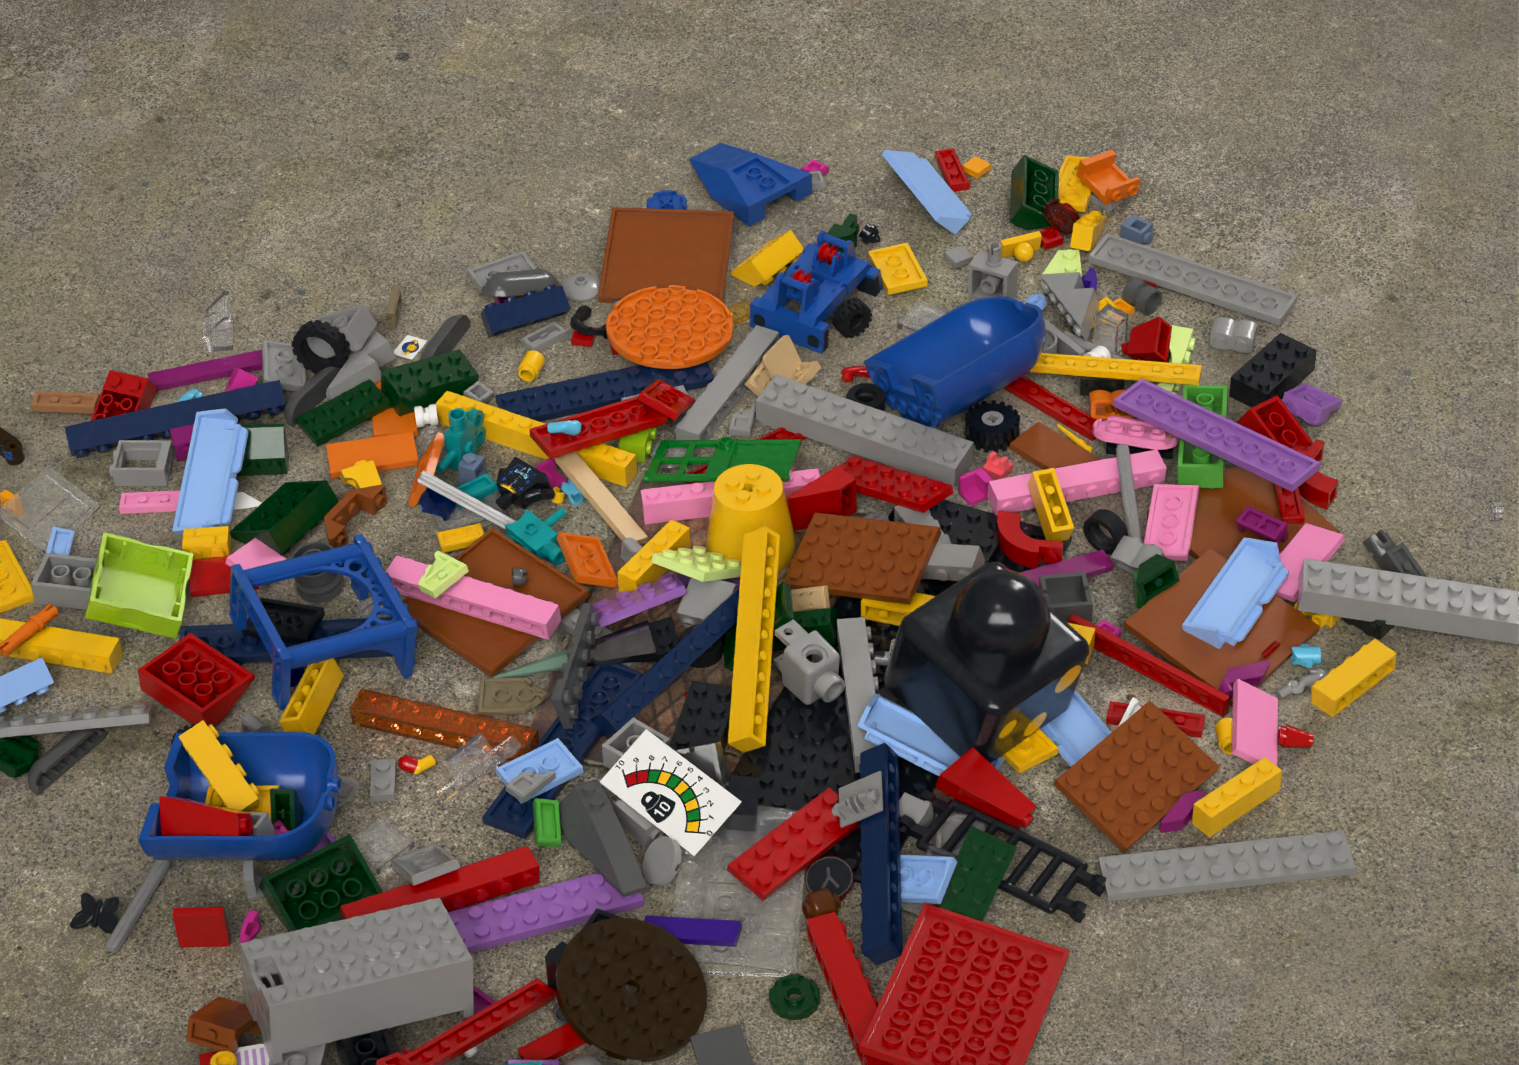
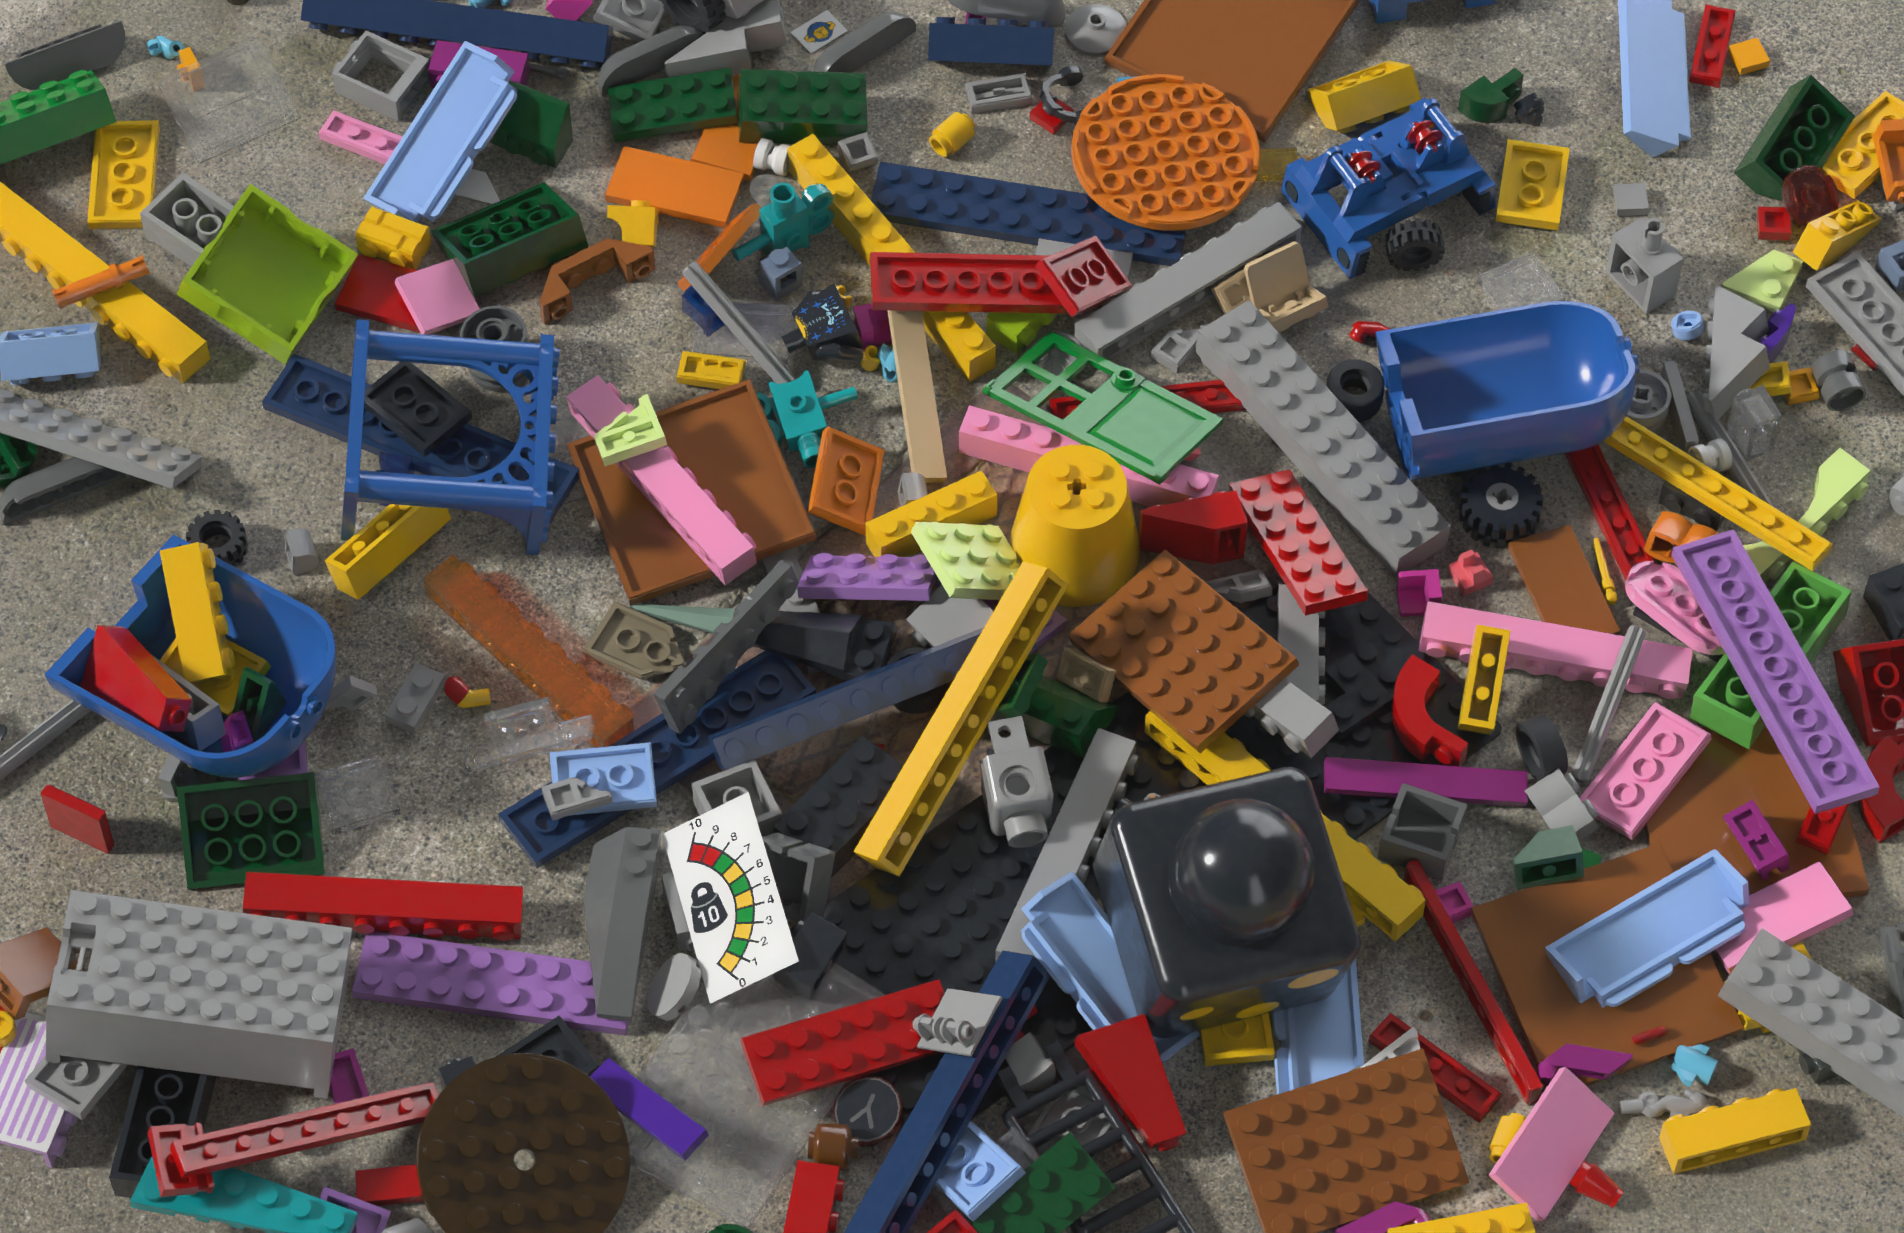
camera: 25 degrees right, 15 degrees up
(60, 541) = (215, 161): light blue tile -> none
(195, 681) = (264, 448): red slope -> none
(250, 927) = (140, 842): dark pink tile -> none
(425, 864) = (386, 854): light grey tile -> none
(479, 487) = (766, 304): teal tile -> none
(517, 576) = (736, 473): dark grey hinge -> none
(547, 823) = (571, 860): bright green tile -> none
(567, 427) = (919, 276): medium azure arm -> none
(1021, 246) = (1724, 222): yellow tile -> none
(1149, 341) = (1795, 465): red torso -> none

